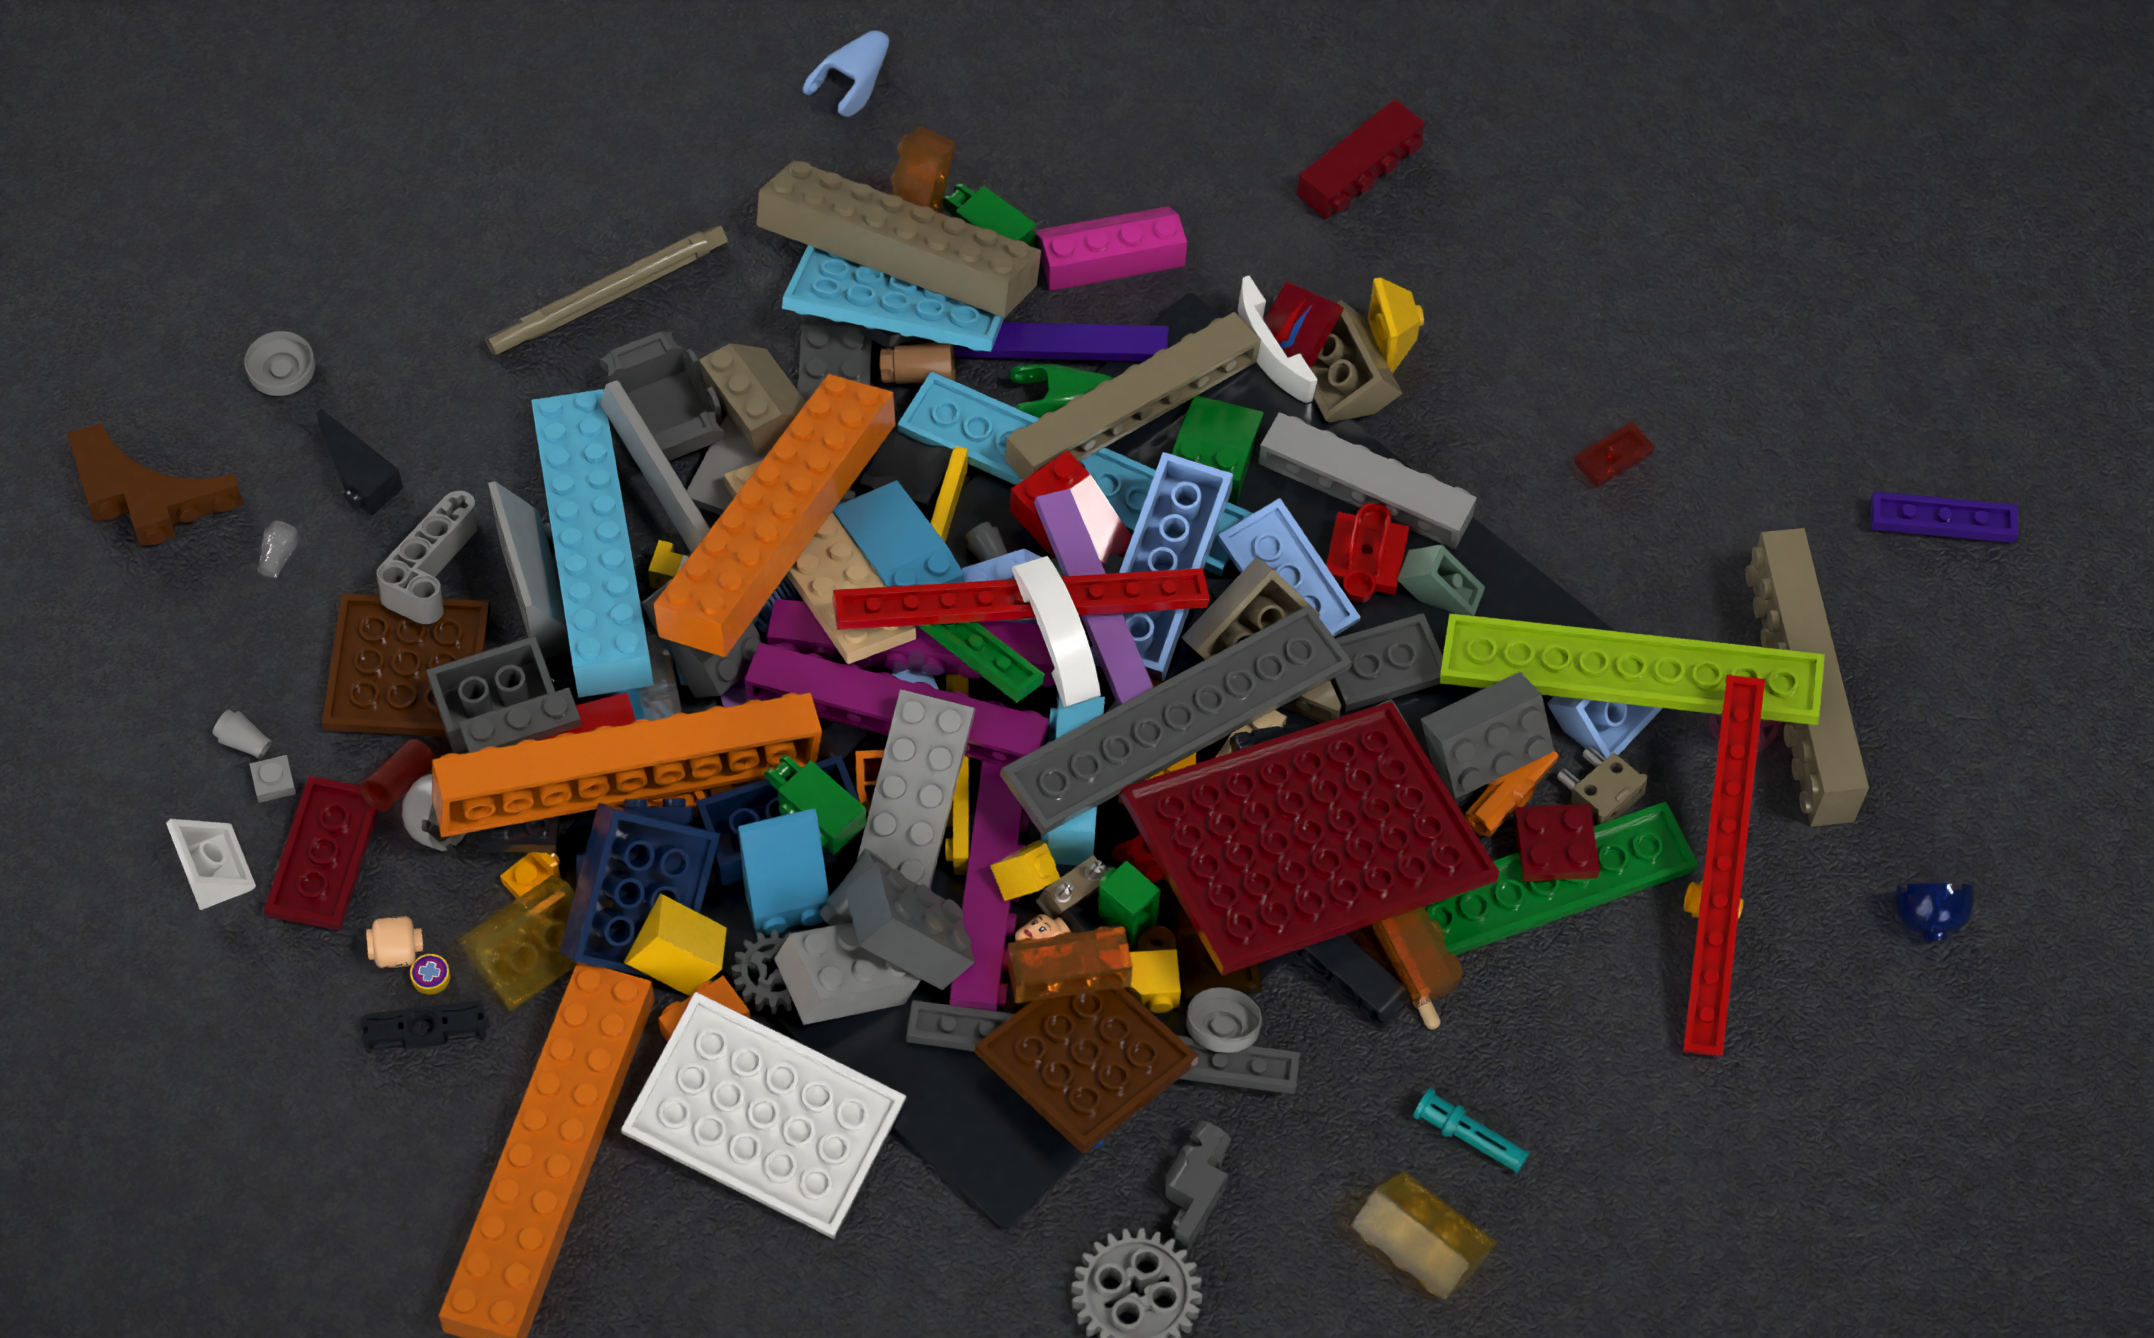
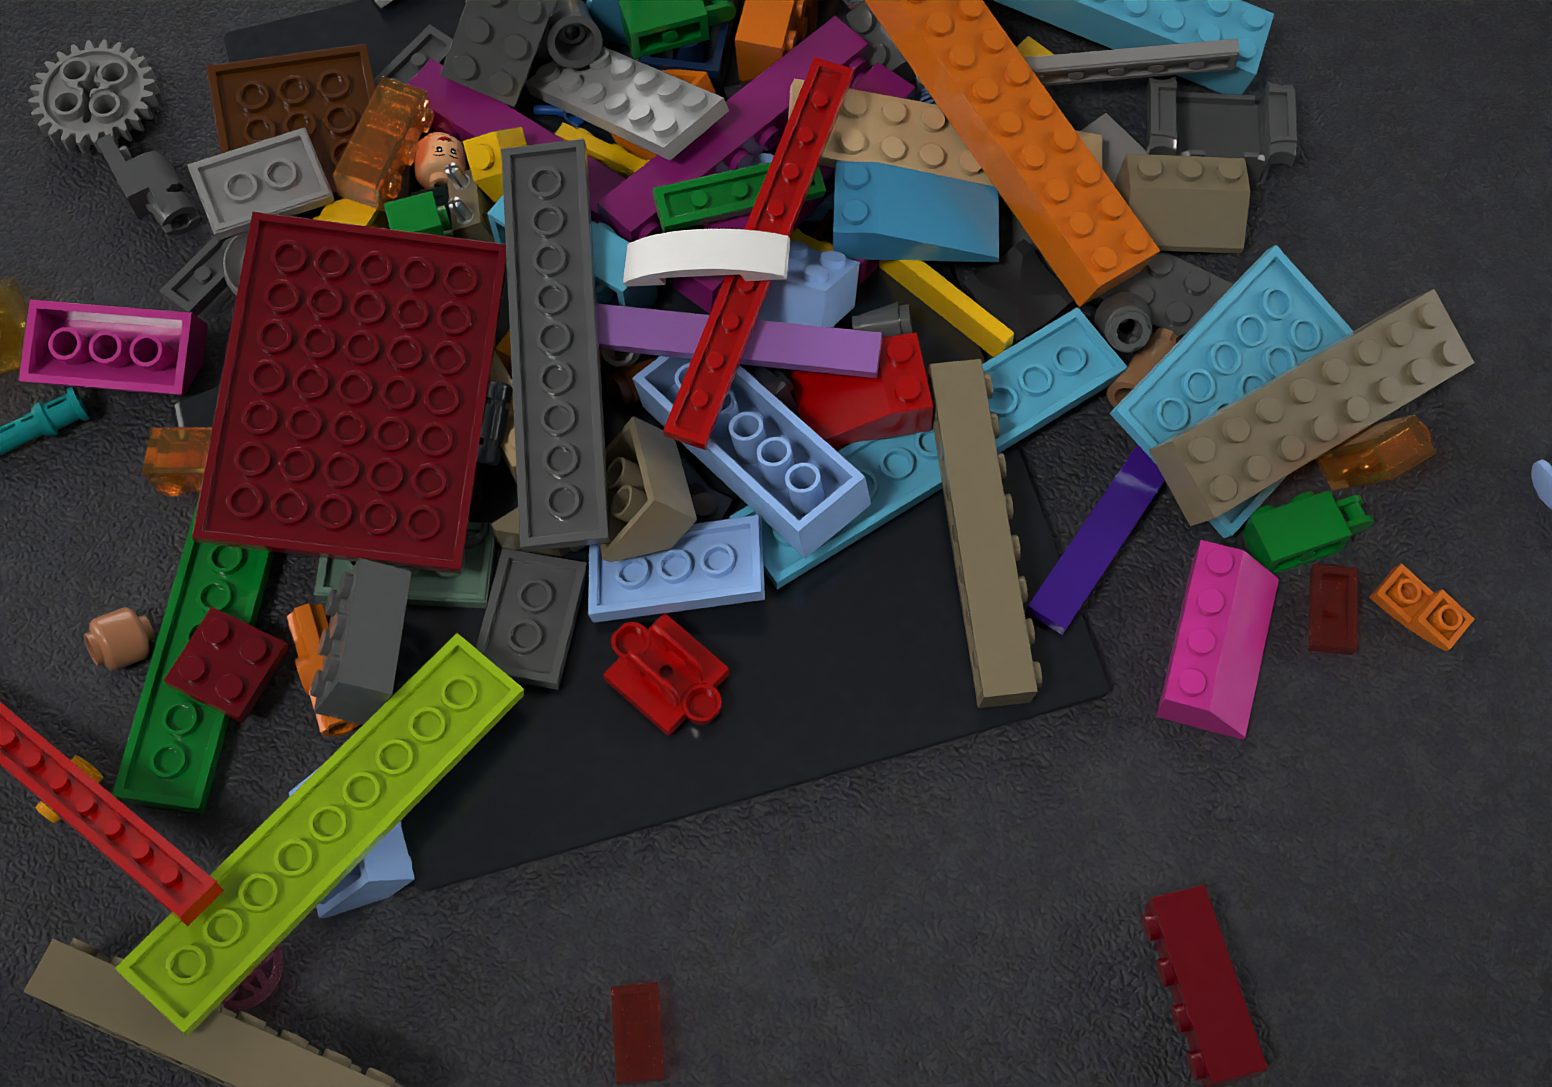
camera: 125 degrees right, 5 degrees up
(607, 289) = (1394, 156): dark tan piece -> none
(903, 376) = (1118, 309): none -> dark grey plant
(1002, 140) = (1428, 614): none -> orange slope
(1040, 187) = (1333, 609): none -> clear red plate
(1063, 385) = (1041, 491): green animal -> none
(1163, 1040) = (263, 177): none -> light grey tile
(1220, 438) = (886, 596): green slope -> none
(1288, 373) = (1045, 726): white slope -> none
(1302, 321) = (992, 764): dark red tile -> none
(1352, 371) = (918, 792): dark tan slope -> none
(1364, 477) = (751, 724): light grey brick -> none
(1366, 1096) = (112, 347): none -> dark pink slope
(1393, 320) = (939, 874): yellow slope -> none
(1440, 580) = (583, 725): sand green slope -> none
(1586, 939) = (119, 638): none -> nougat head
(1608, 788) = (254, 762): dark tan piece -> none

